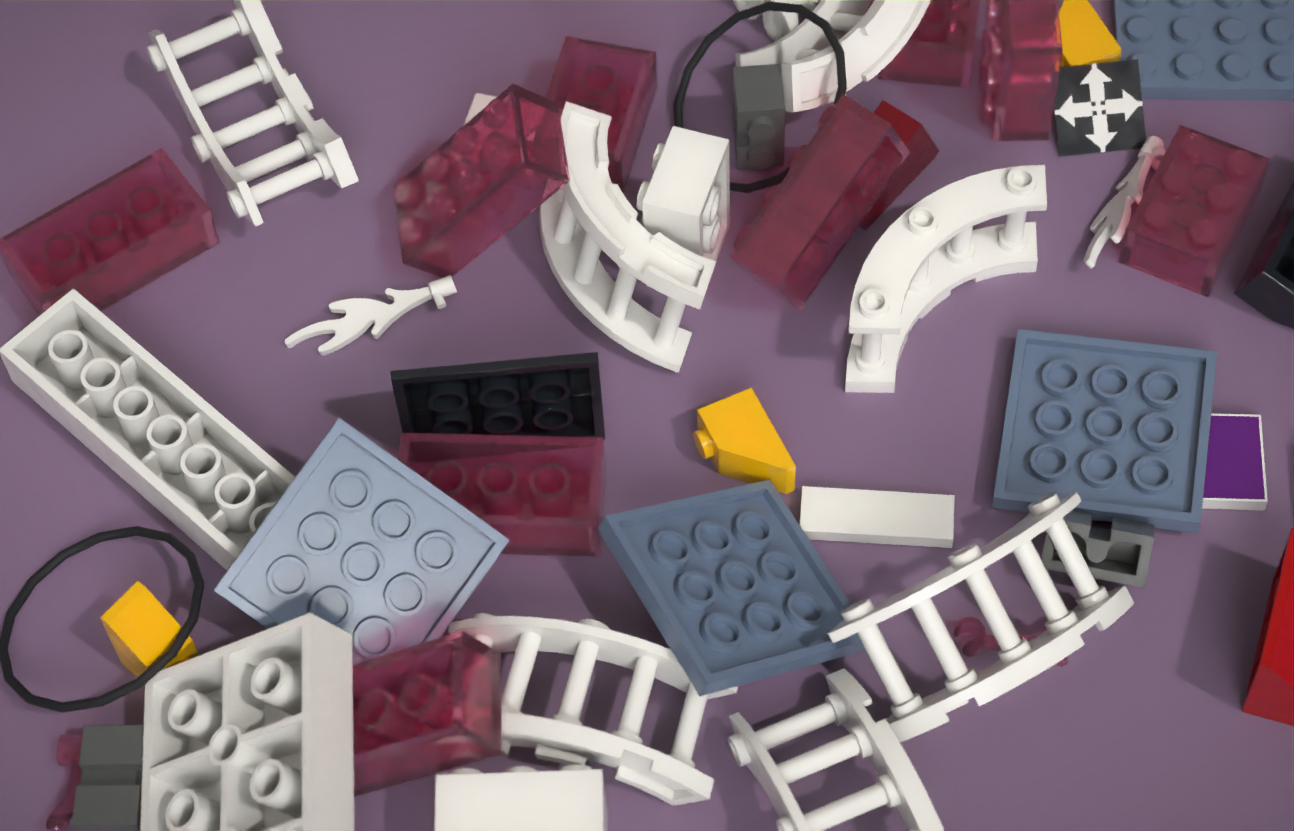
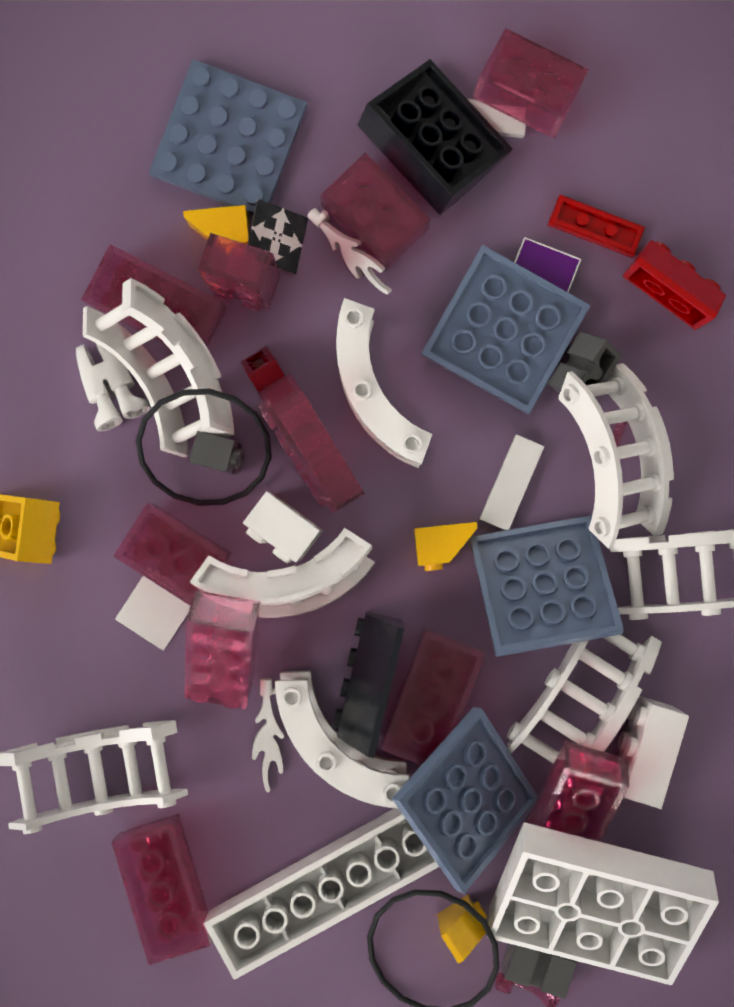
camera: 75 degrees left, 30 degrees up
(383, 341) = (331, 758): none -> white fence

